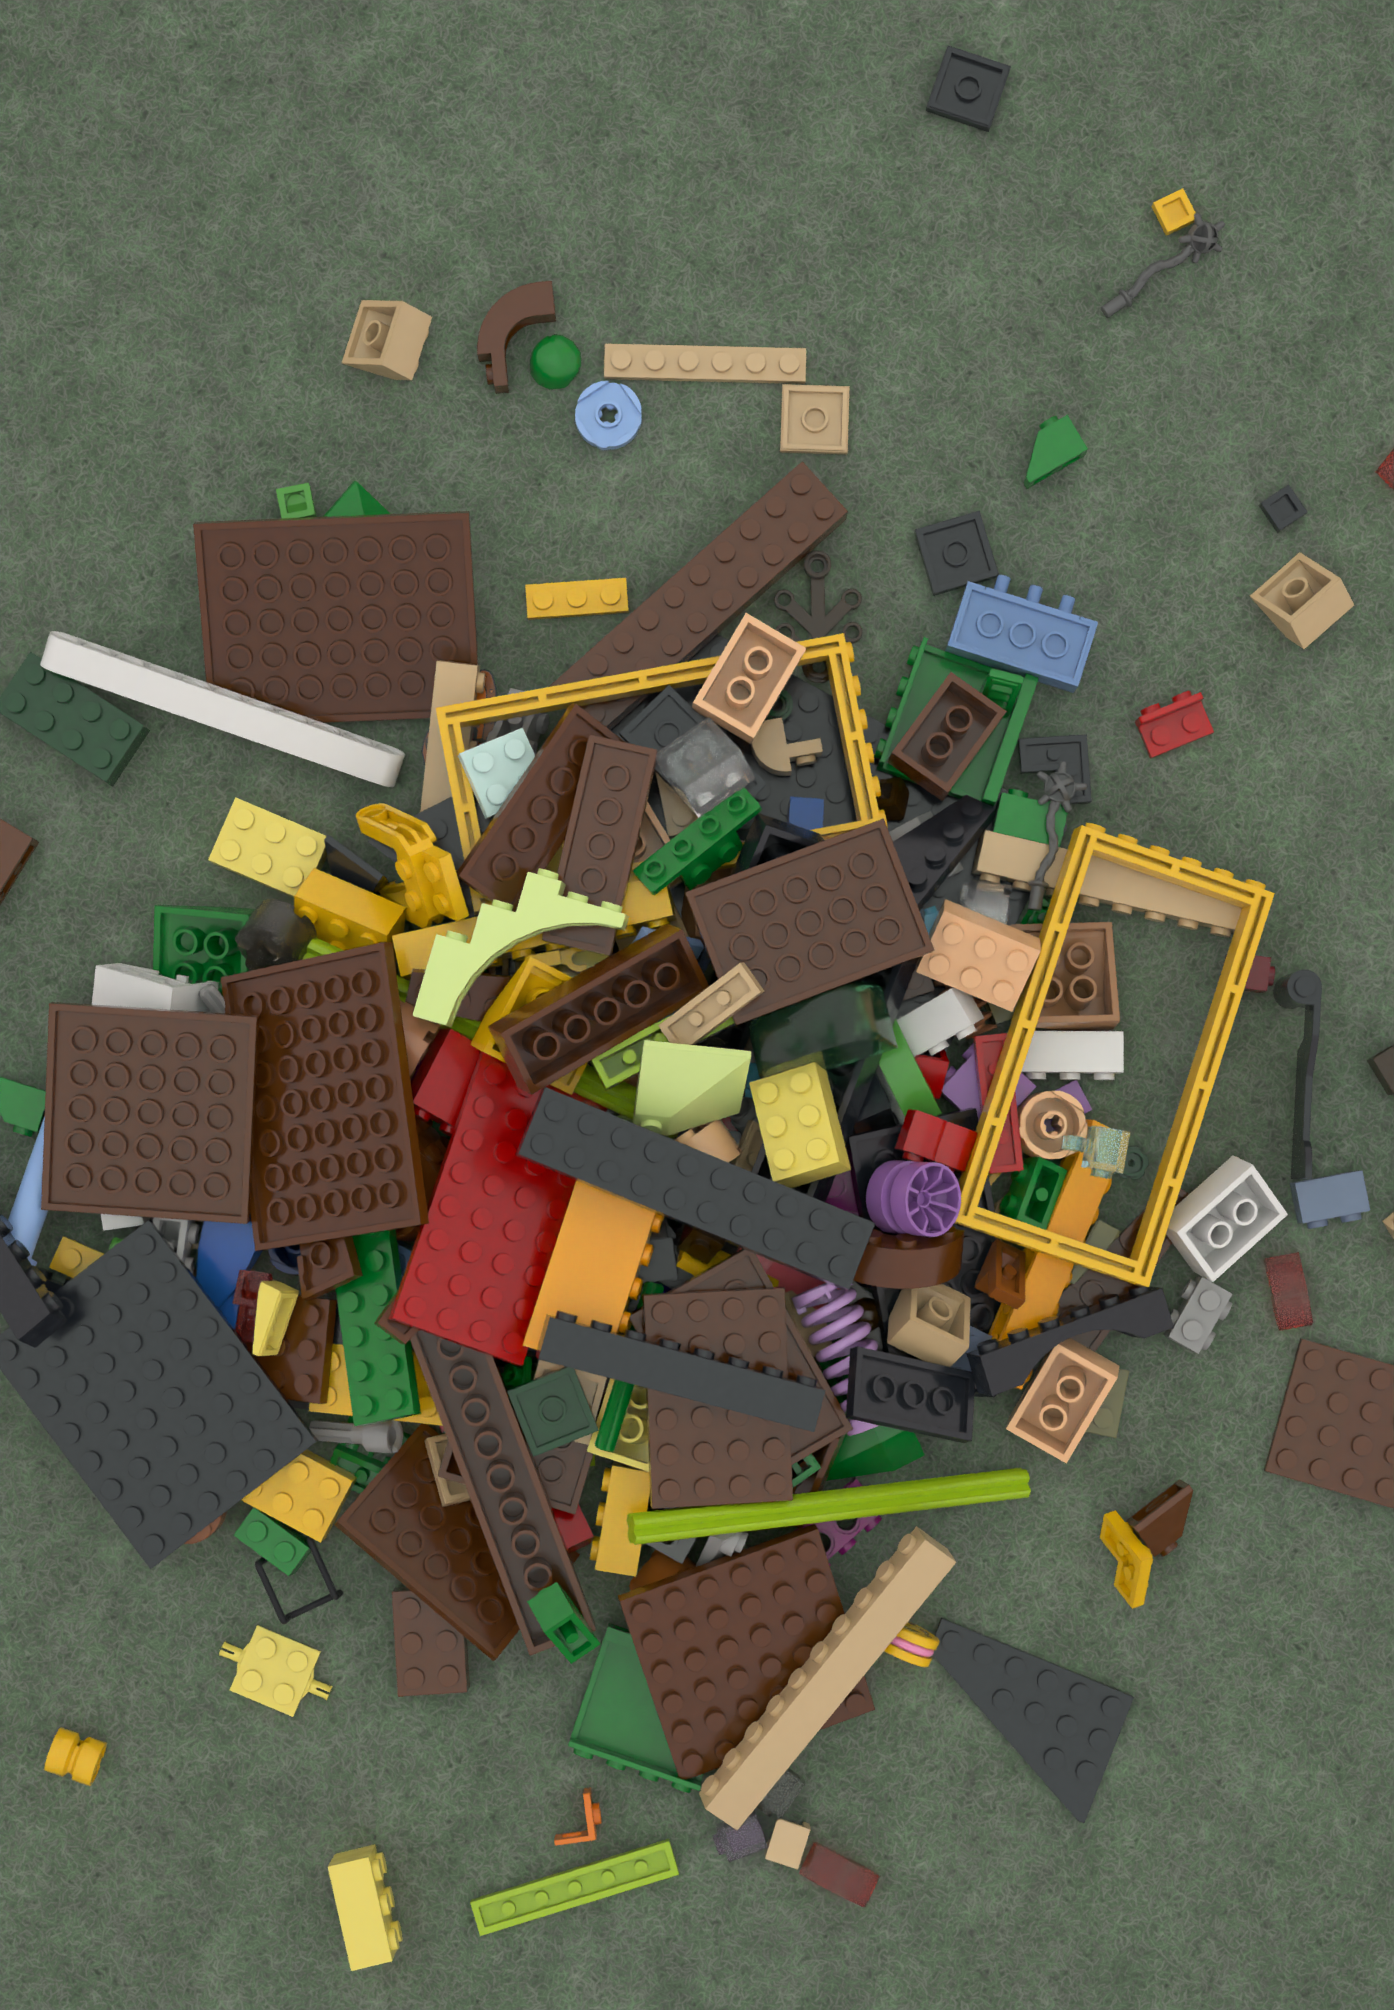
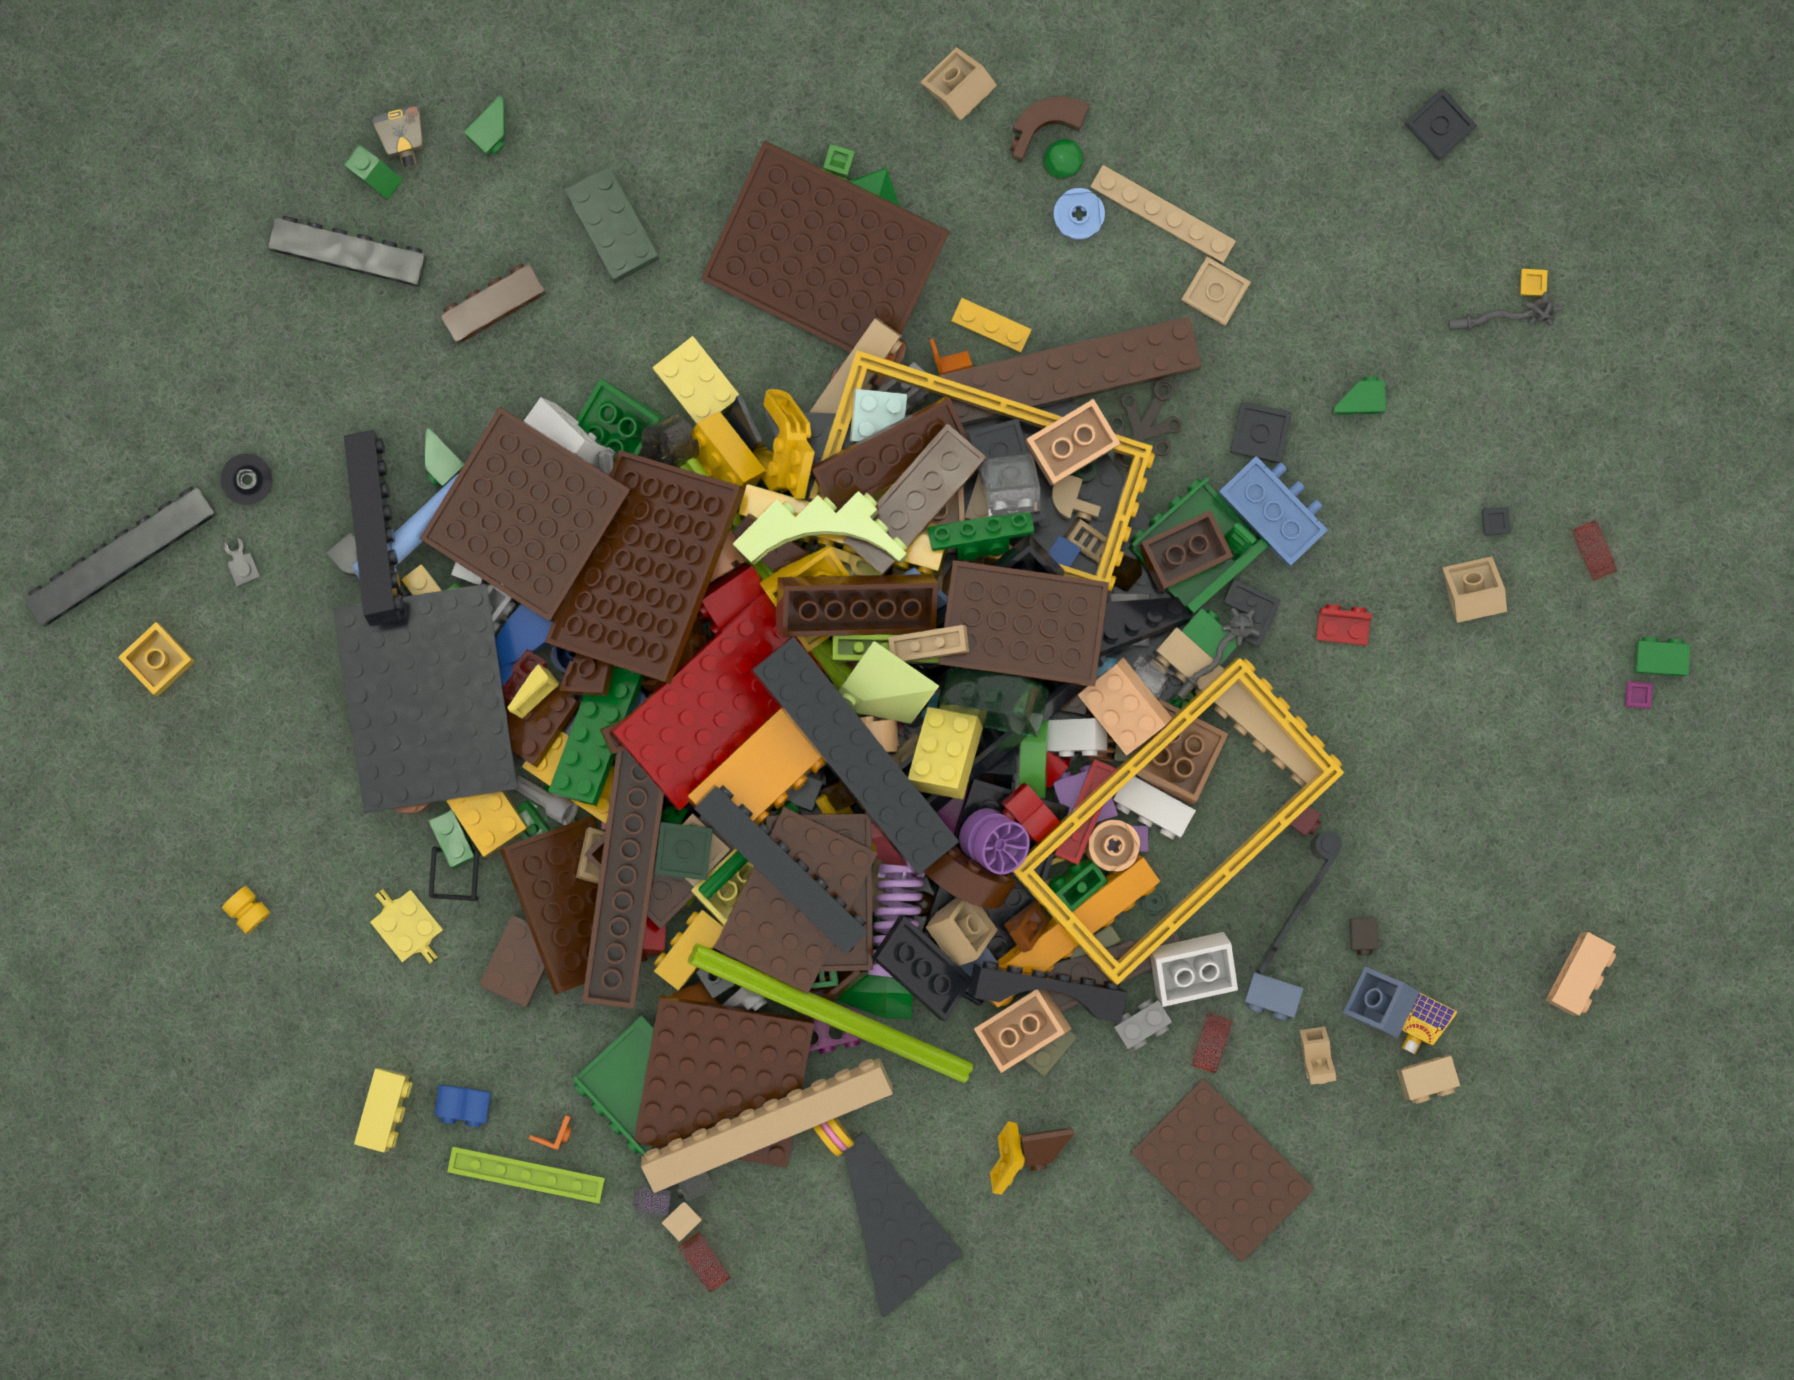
camera: 25 degrees right, 0 degrees up
(222, 709) = (716, 272): white beam -> none
(455, 1845) = (462, 1104): none -> blue brick
(554, 666) = (952, 362): none -> orange bracket
(563, 1622) = (616, 991): green slope -> none
(803, 779) = (1087, 529): none -> tan slope
(1102, 1149) = (1136, 877): clear light blue brick -> none

